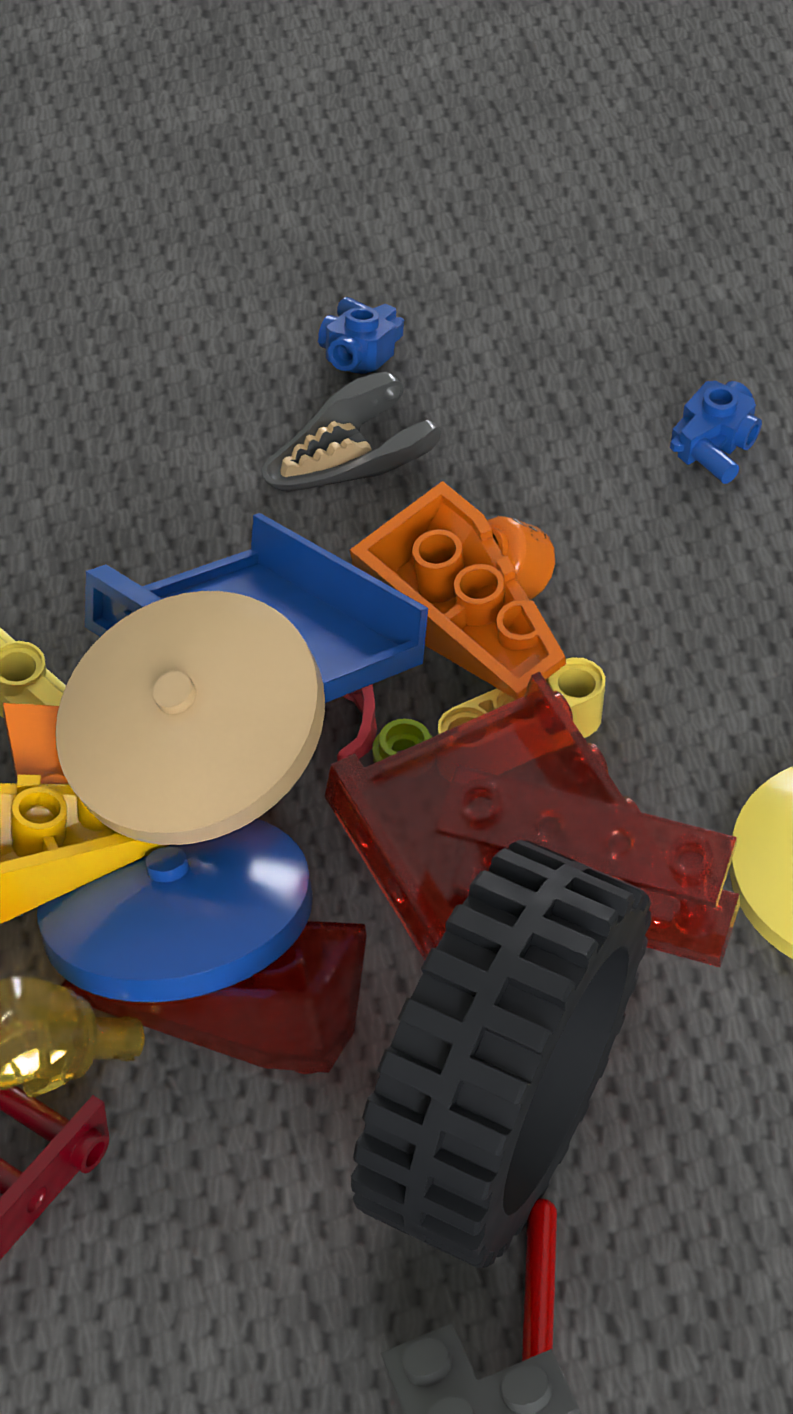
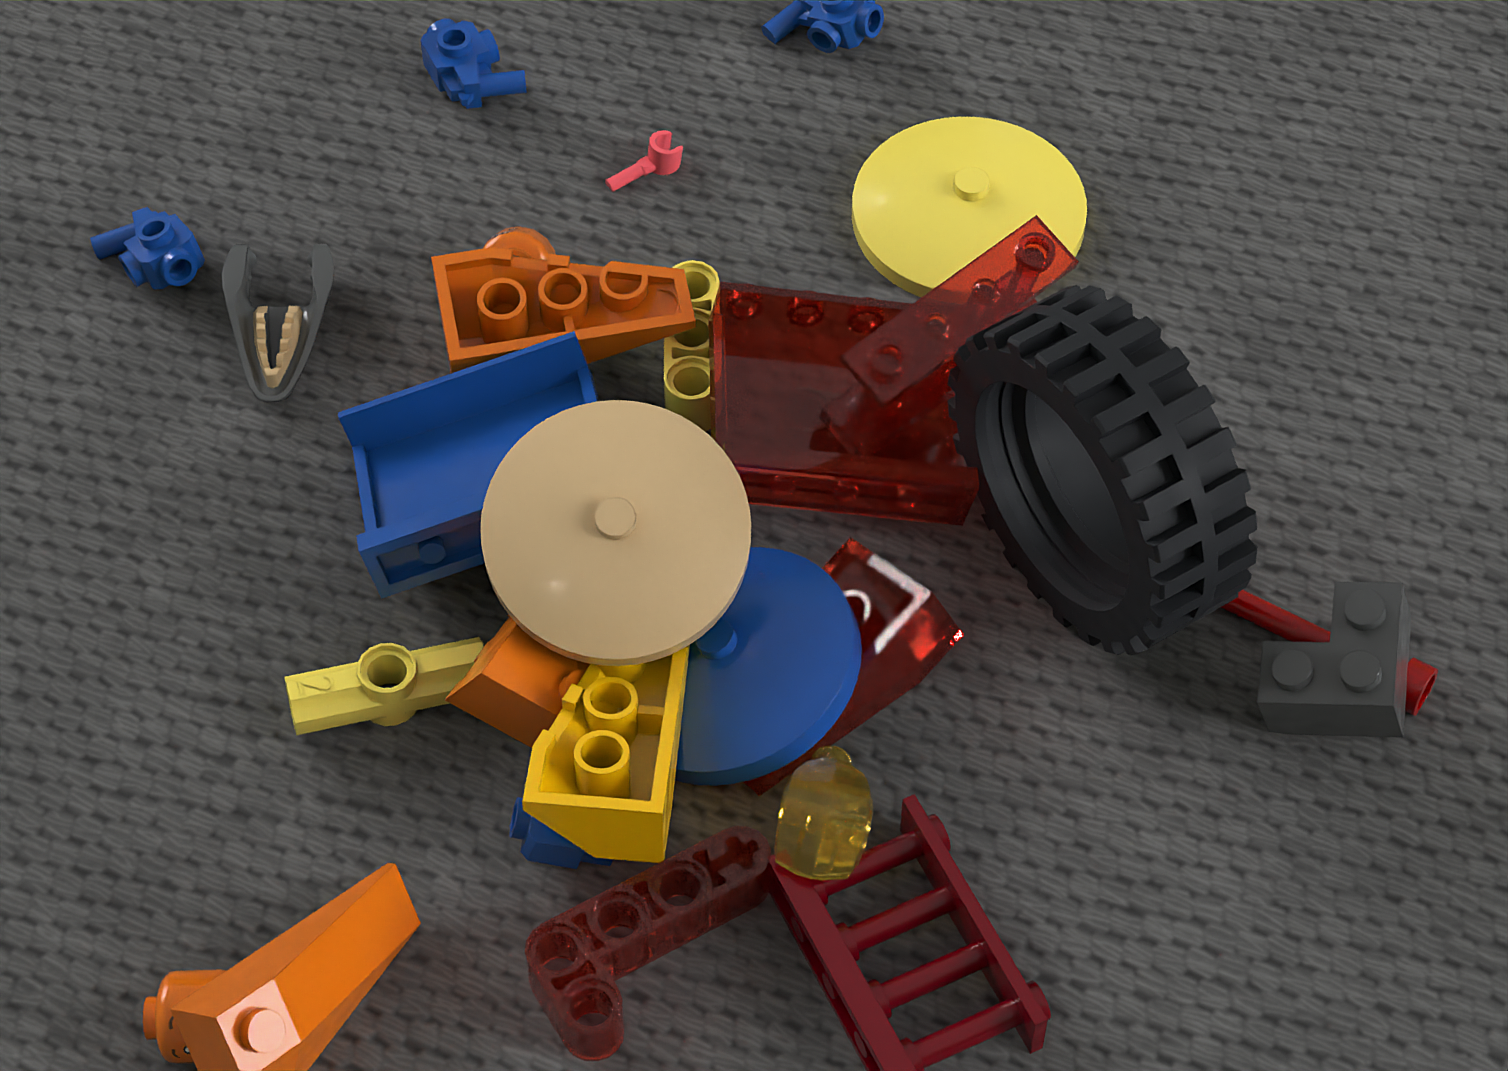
camera: 60 degrees left, 5 degrees up
(731, 609) = (658, 160): none -> coral hand

